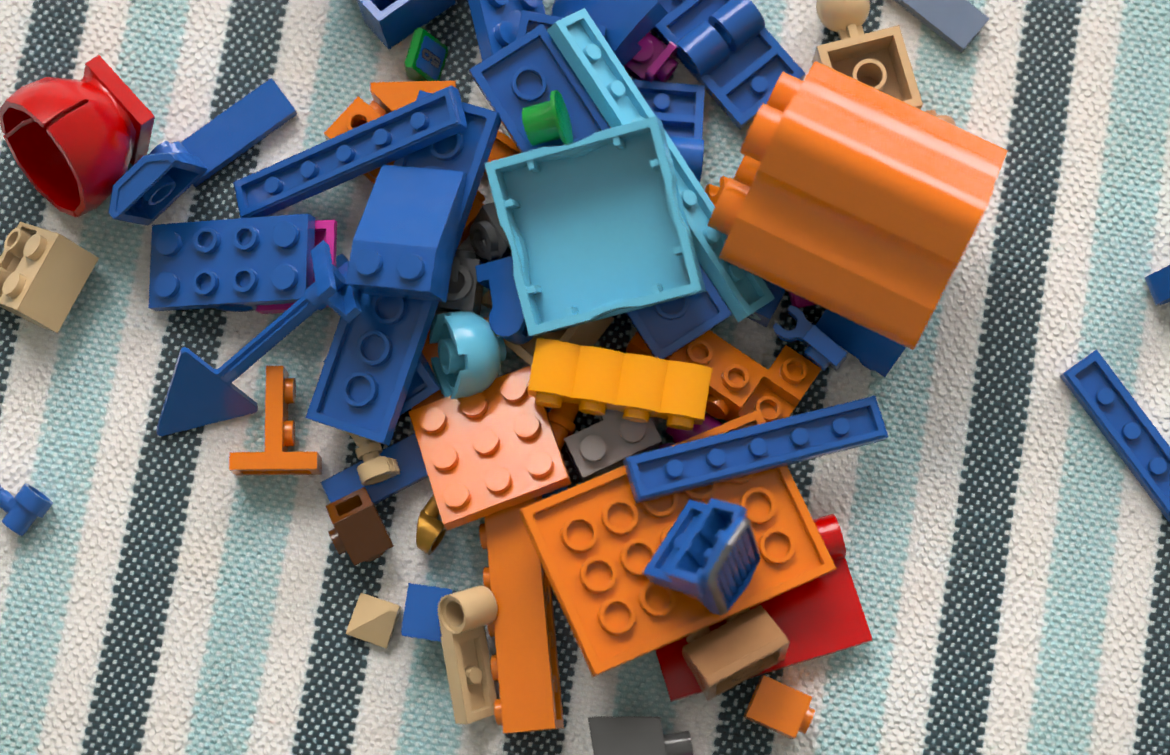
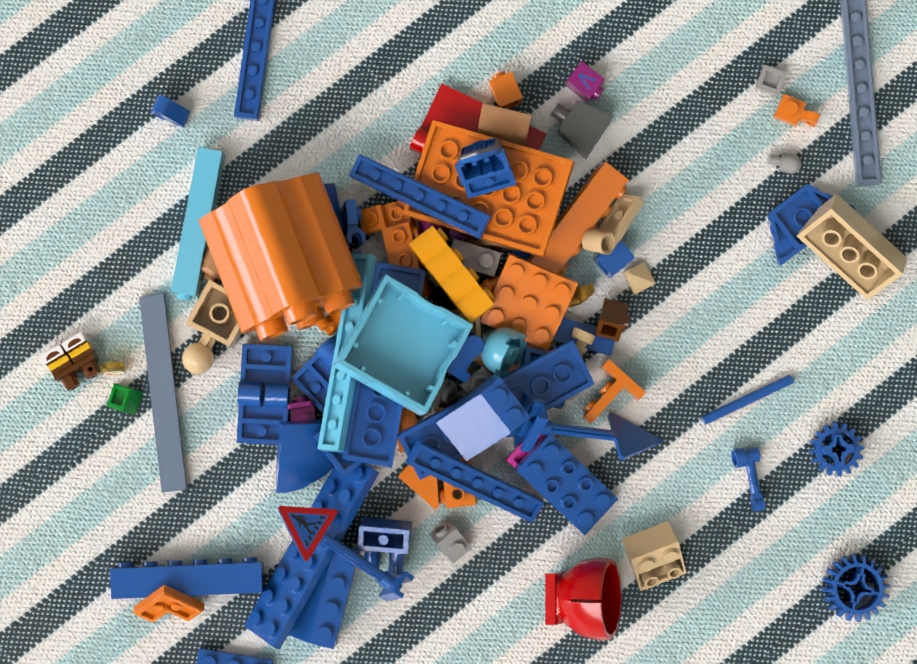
camera: 140 degrees left, 5 degrees up
(87, 589) = (747, 399): none -> blue bar
(154, 183) = (568, 549): blue slope -> none
(239, 128) = (513, 546): blue tile -> none
(319, 68) = (450, 541): none -> light grey bracket
(425, 57) = (399, 502): slope -> none
(548, 121) = (380, 409): green piece -> none
(1019, 187) = (201, 201): none -> medium azure brick

